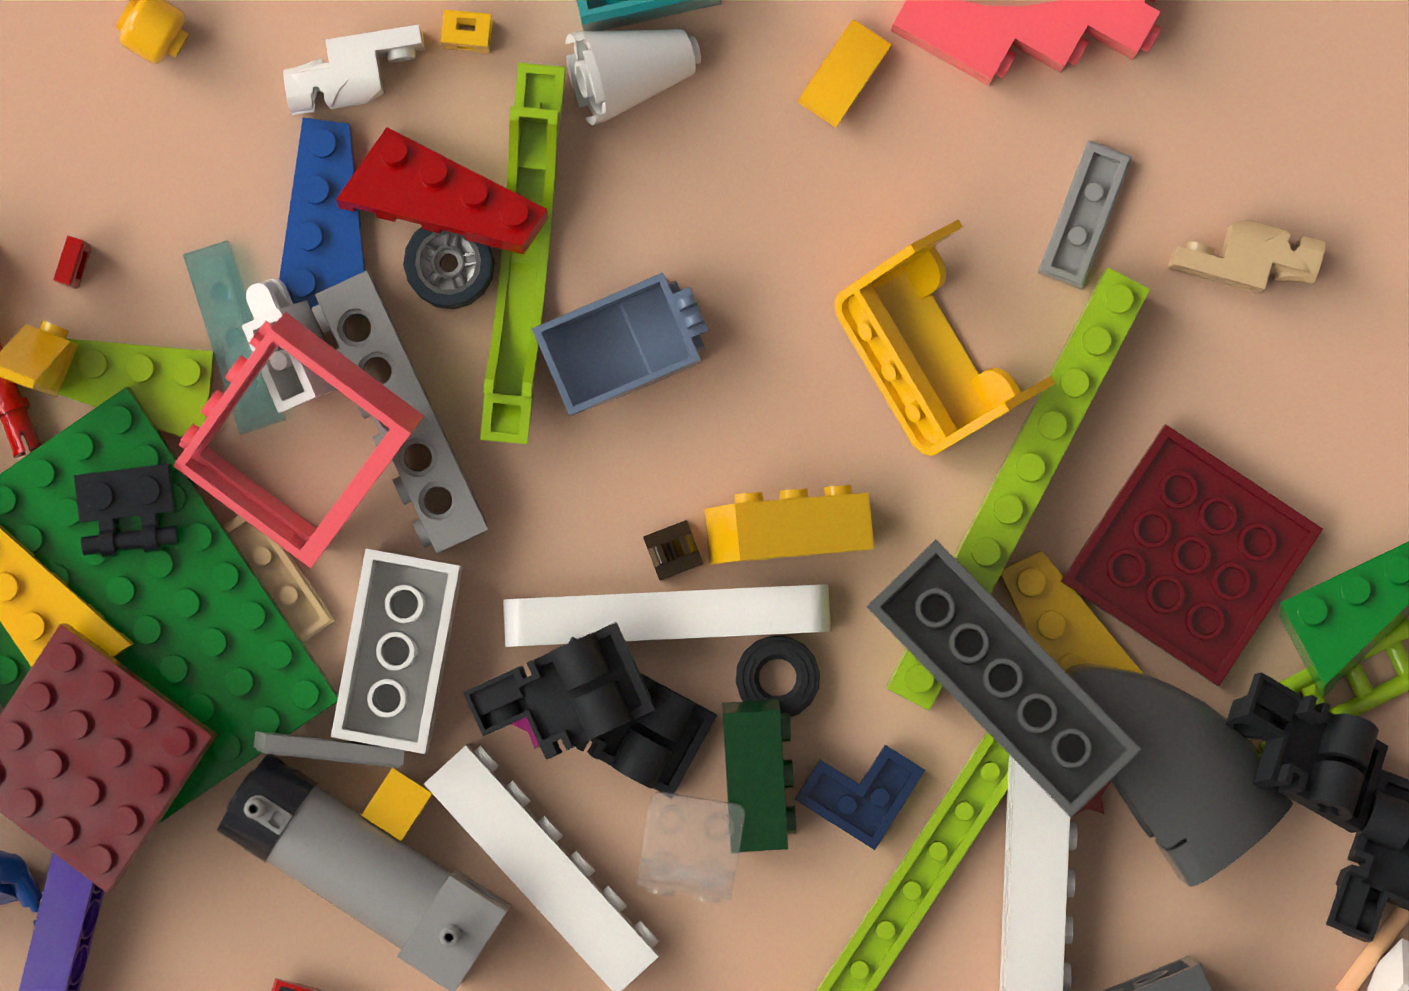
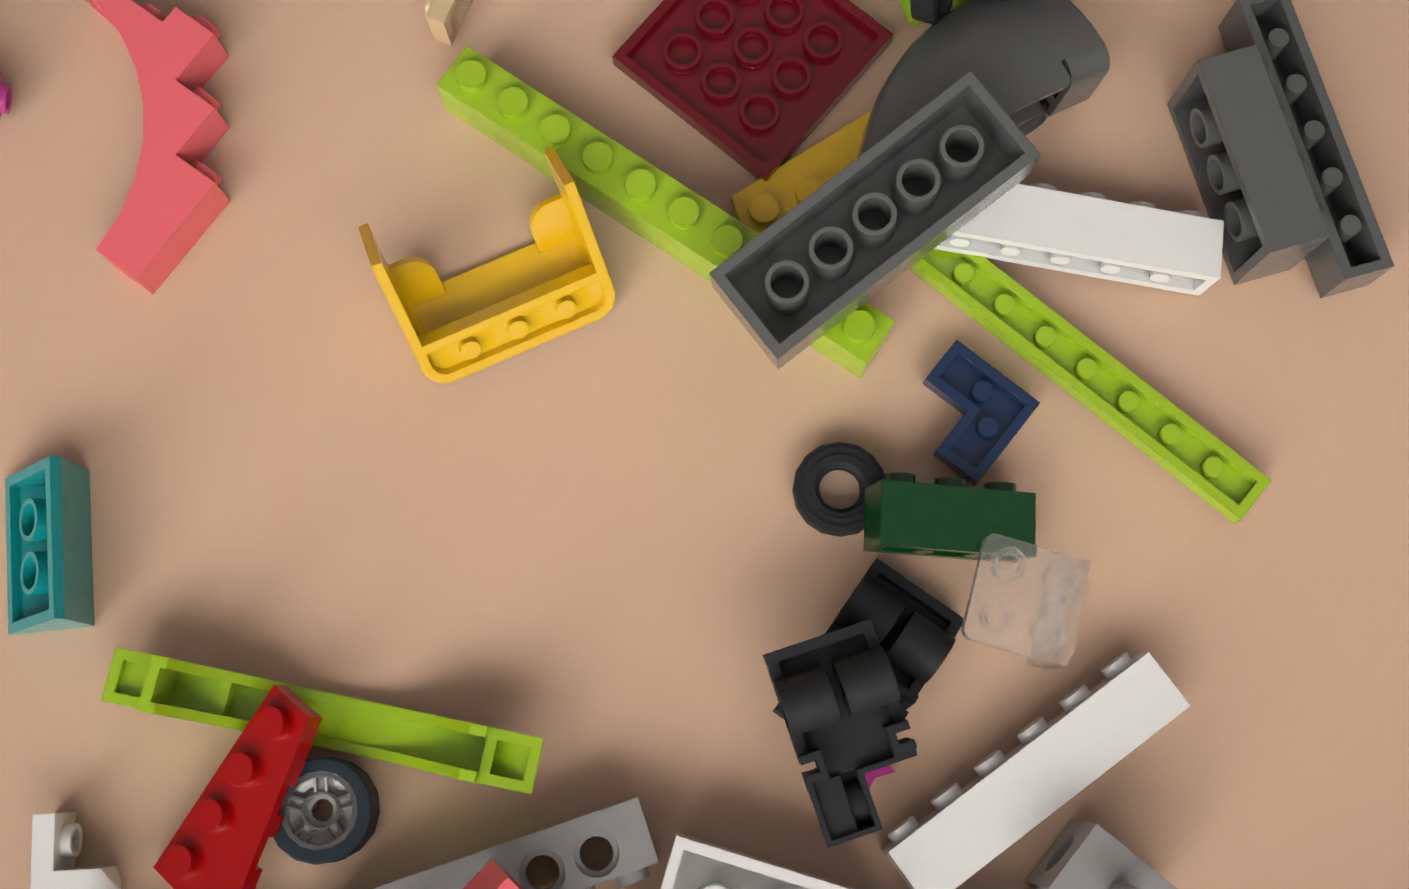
camera: 85 degrees left, 10 degrees down
(463, 40) = (66, 760): yellow piece -> none
(622, 342) = (442, 615): sand blue piece -> none
(627, 67) = (131, 579): white cone -> none
(669, 614) = (758, 606): white beam -> none
(673, 550) = (686, 589): dark brown tile -> none
(789, 525) = (673, 456): yellow wedge -> none
(844, 73) = (186, 343): yellow slope -> none
(1084, 214) = (382, 117): light grey tile -> none

